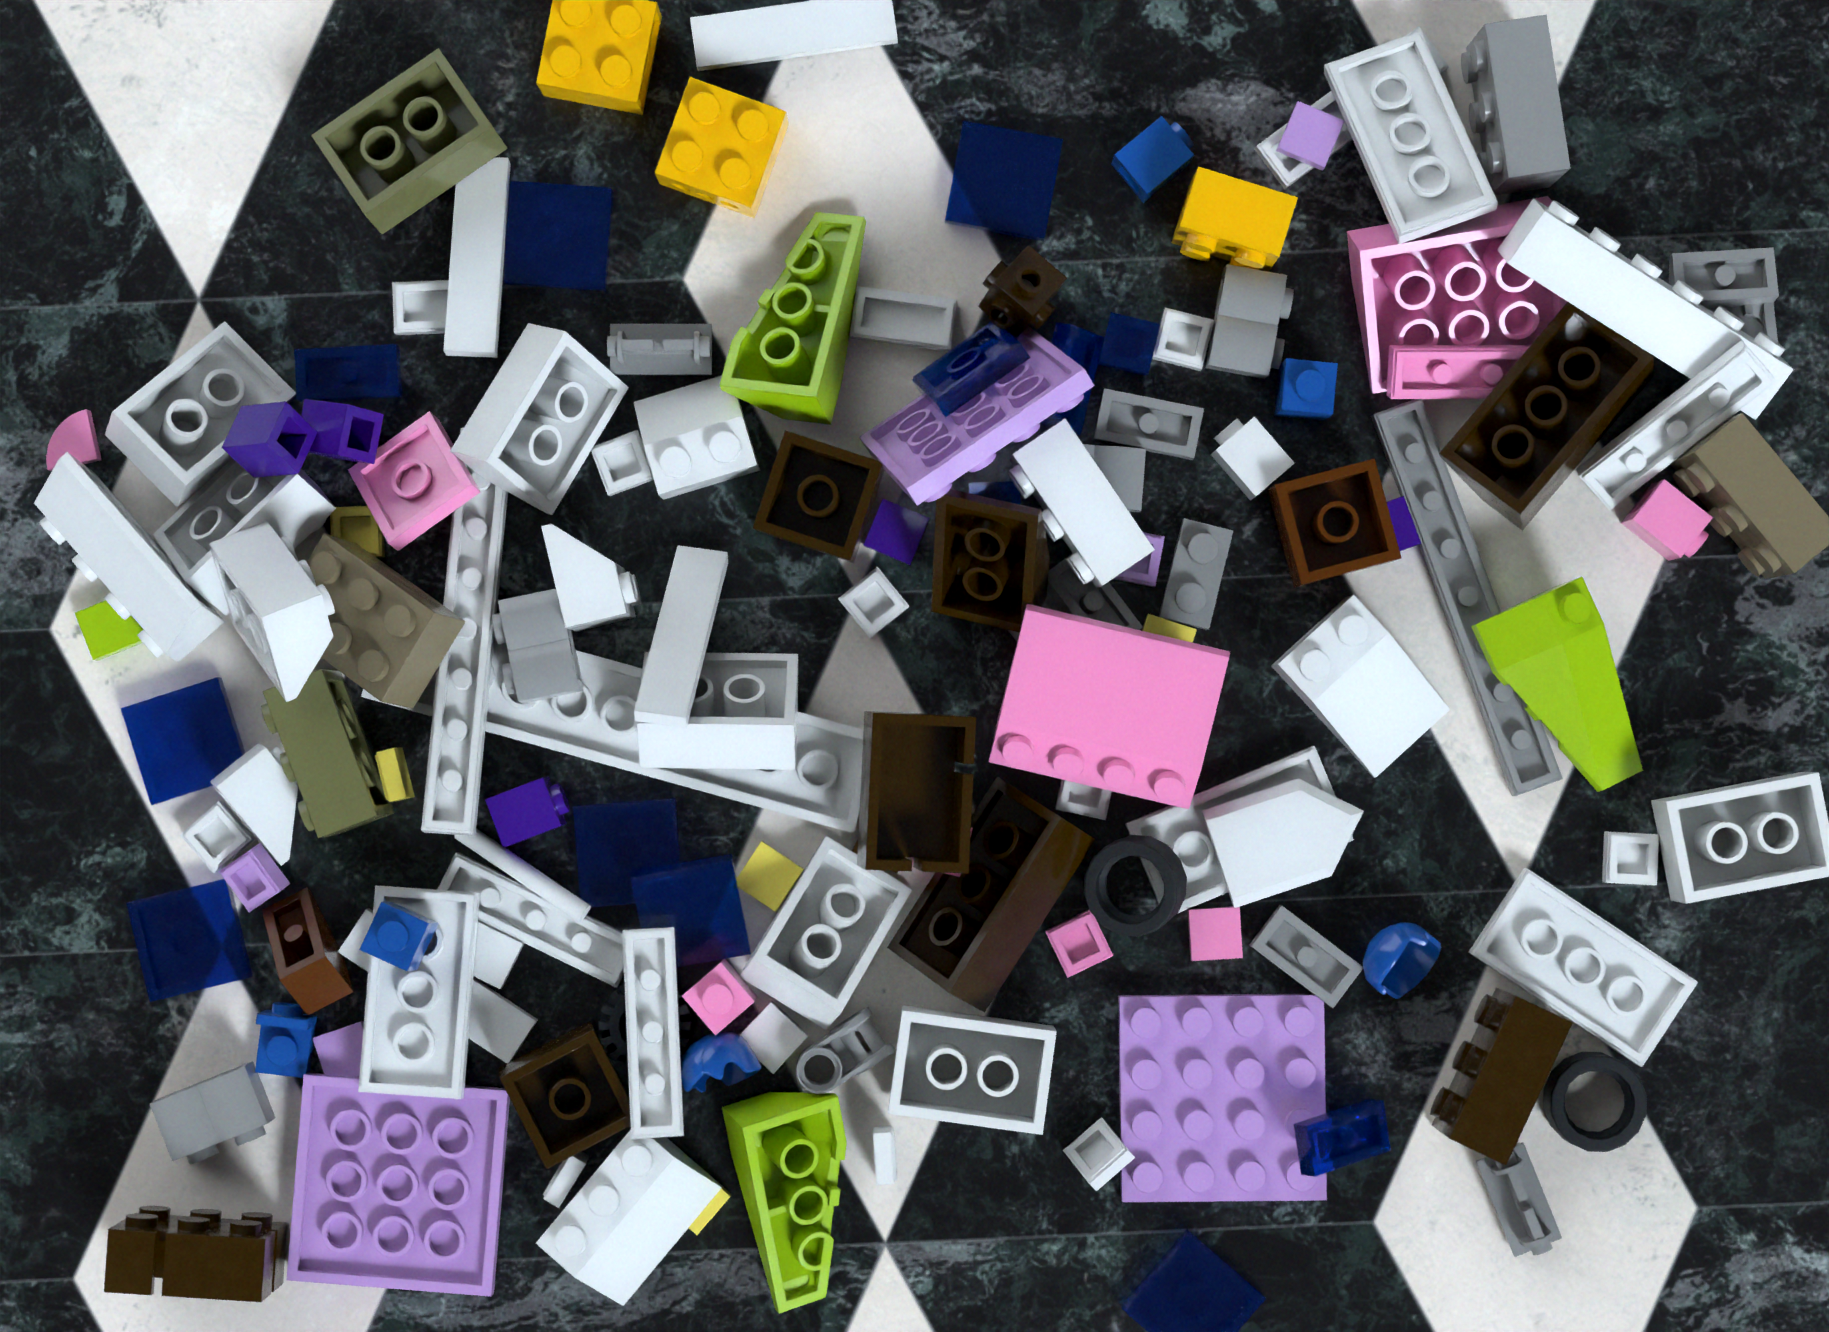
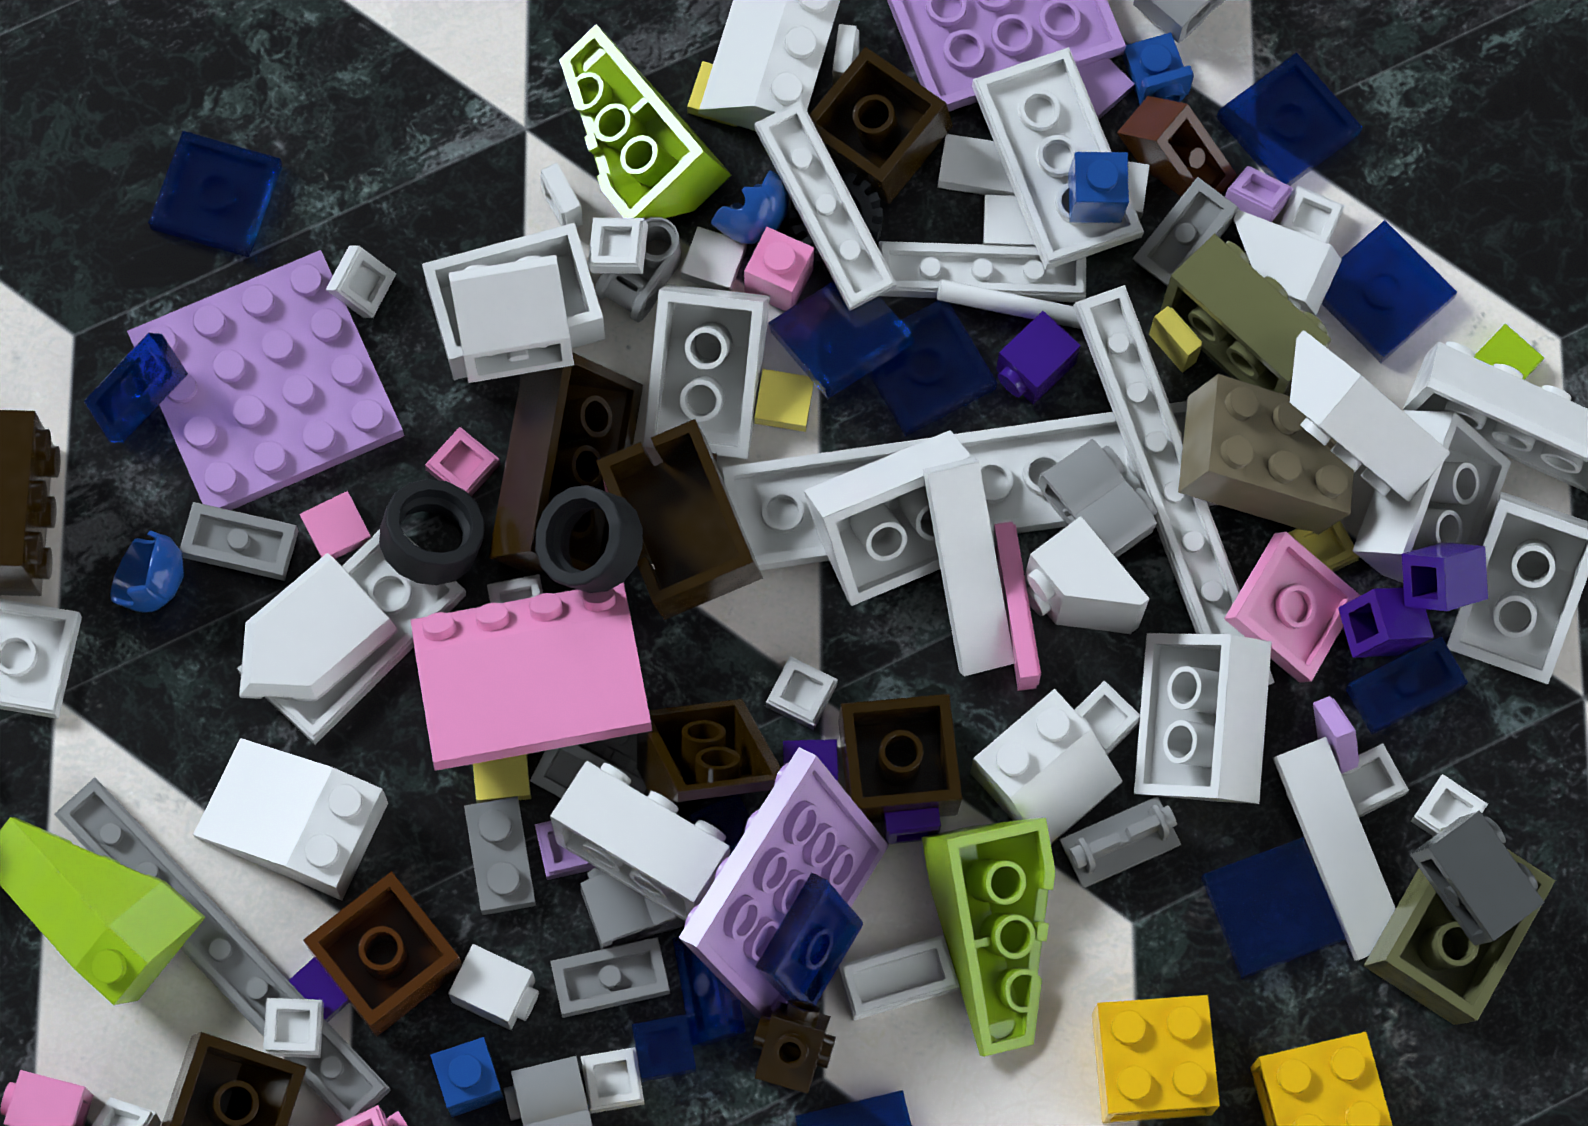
camera: 150 degrees right, 15 degrees down
(337, 867) = (1185, 230): none -> light grey plate
(366, 251) = (1445, 805): none -> white tile
(378, 155) = (1478, 877): none -> dark grey brick
(430, 353) = (1339, 732): none -> lavender tile
(652, 592) = (1017, 606): none -> bright pink tile
(834, 436) = (910, 825): none -> dark purple tile
(857, 1077) = (618, 245): none -> white tile
(990, 1032) = (511, 318): none -> white slope
(1041, 800) = (556, 529): none -> black tyre
(1434, 497) = (293, 1027): none -> white tile

